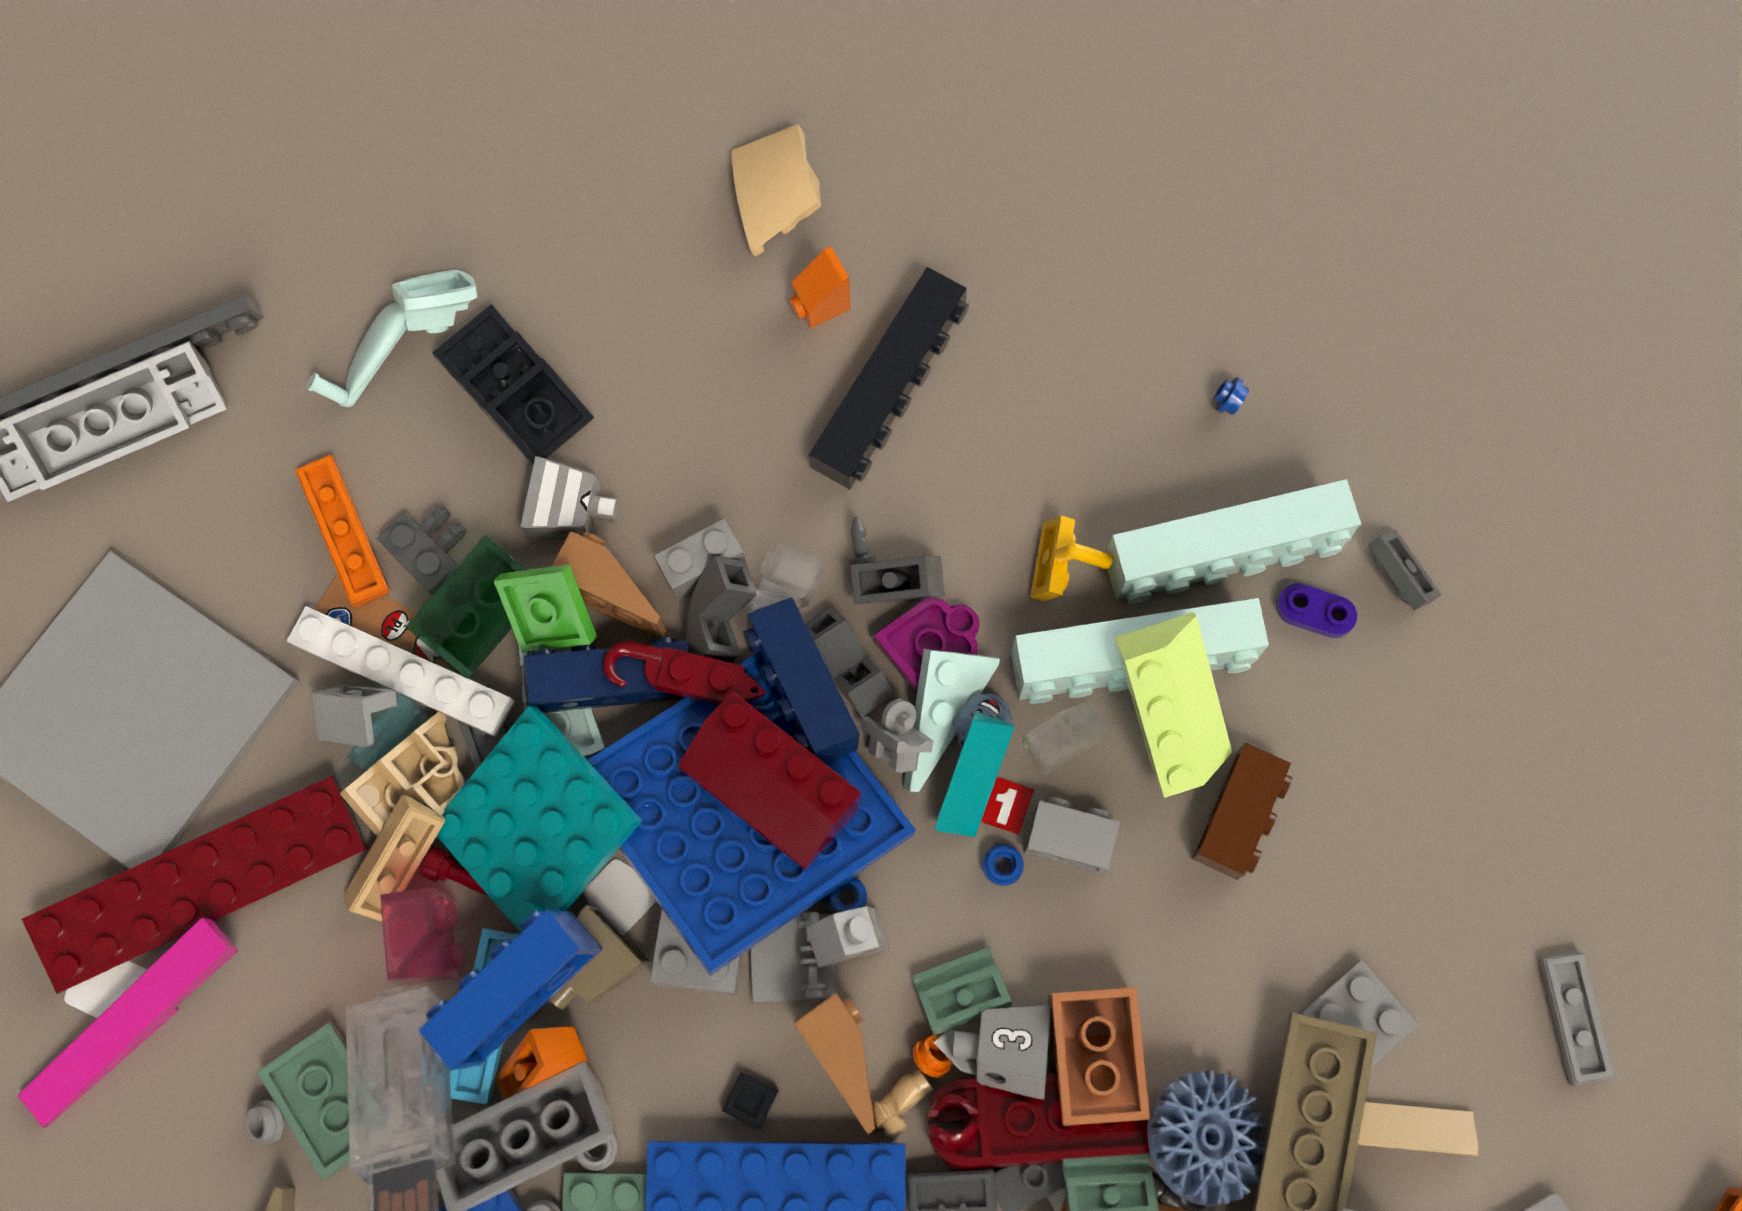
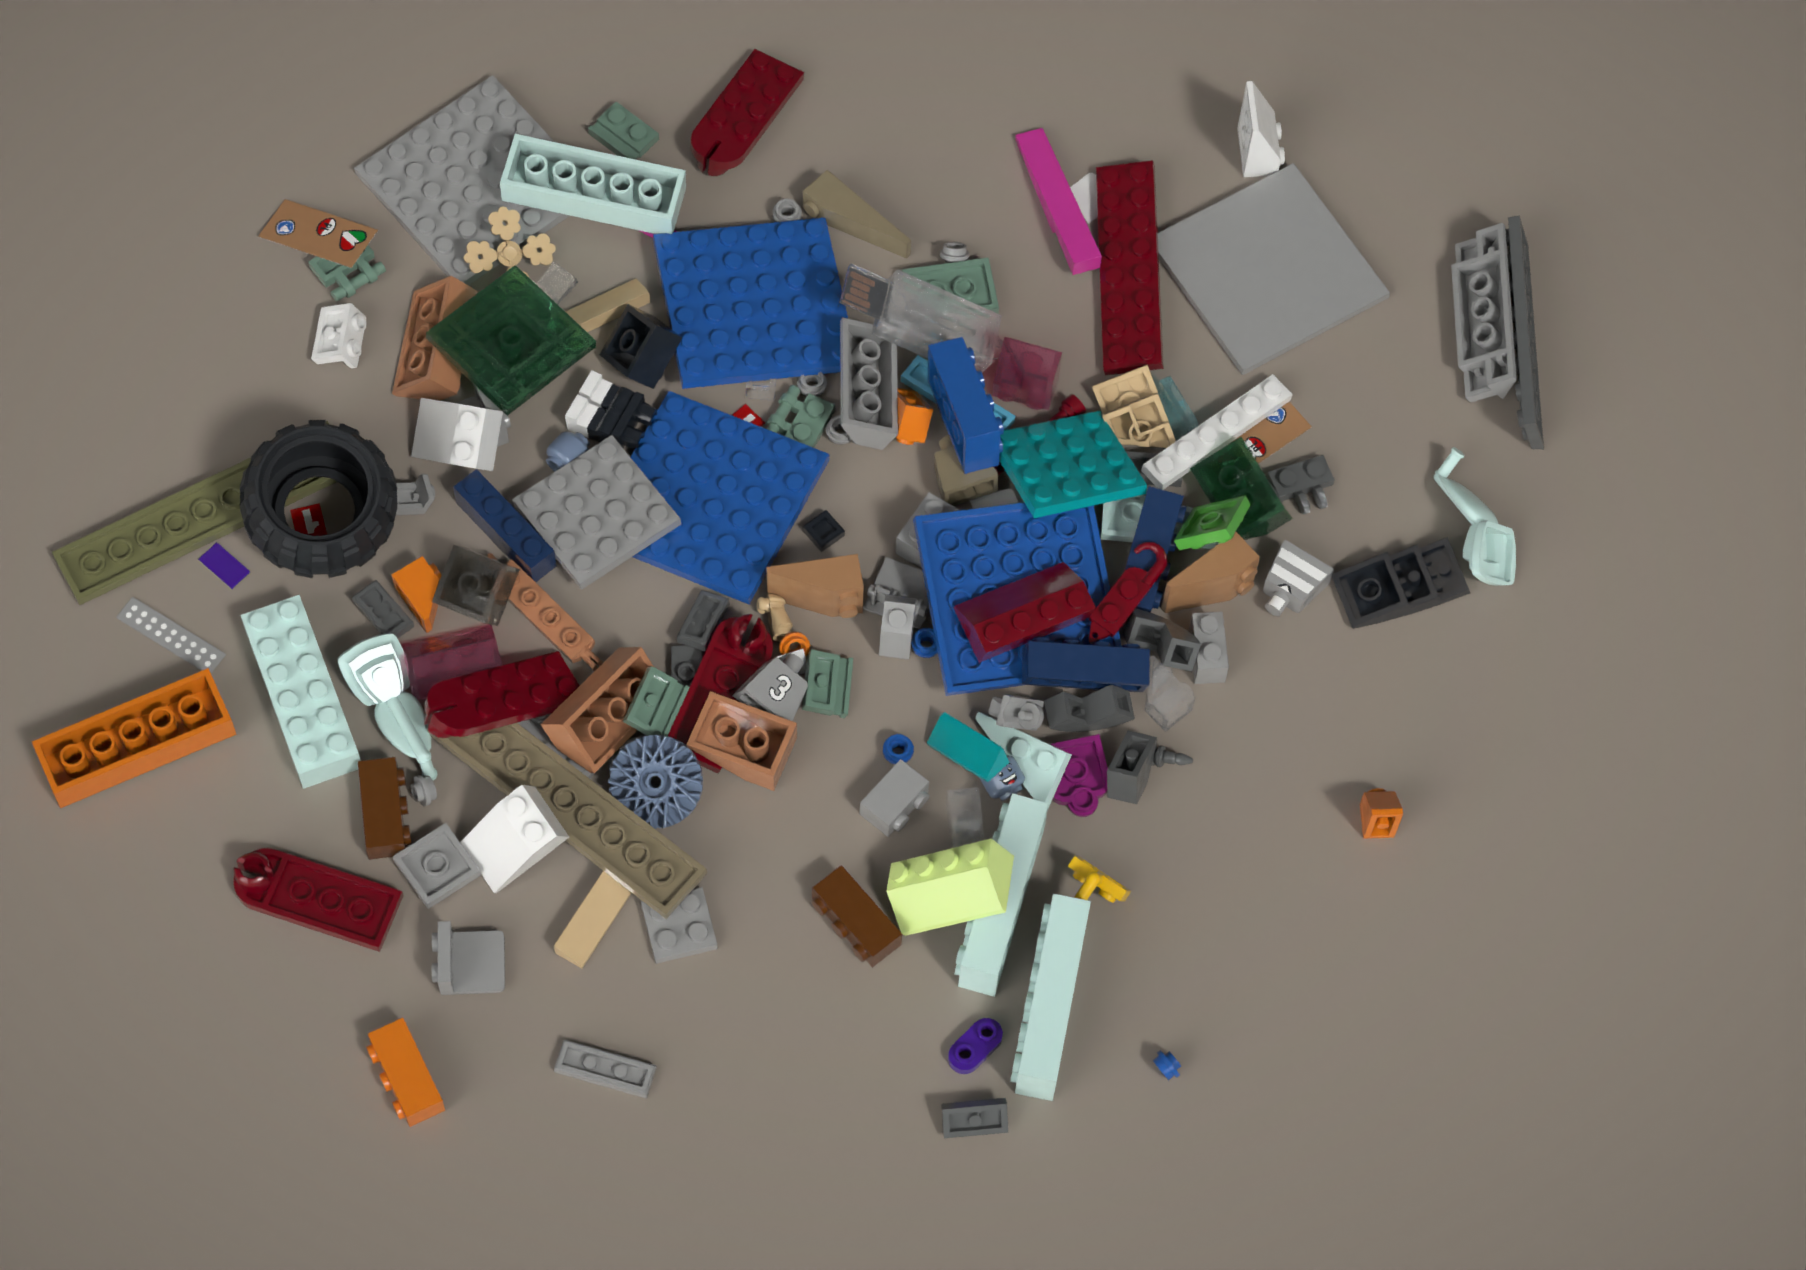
camera: 110 degrees right, 10 degrees down
(342, 531) = (1340, 438): orange tile -> none
(346, 710) = (1205, 390): light grey panel -> none
(393, 856) = (1088, 381): tan slope -> none
(774, 185) = (1483, 818): tan slope -> none
(888, 379) = (1291, 833): black brick -> none
(1007, 805) = (939, 774): red sticker -> none

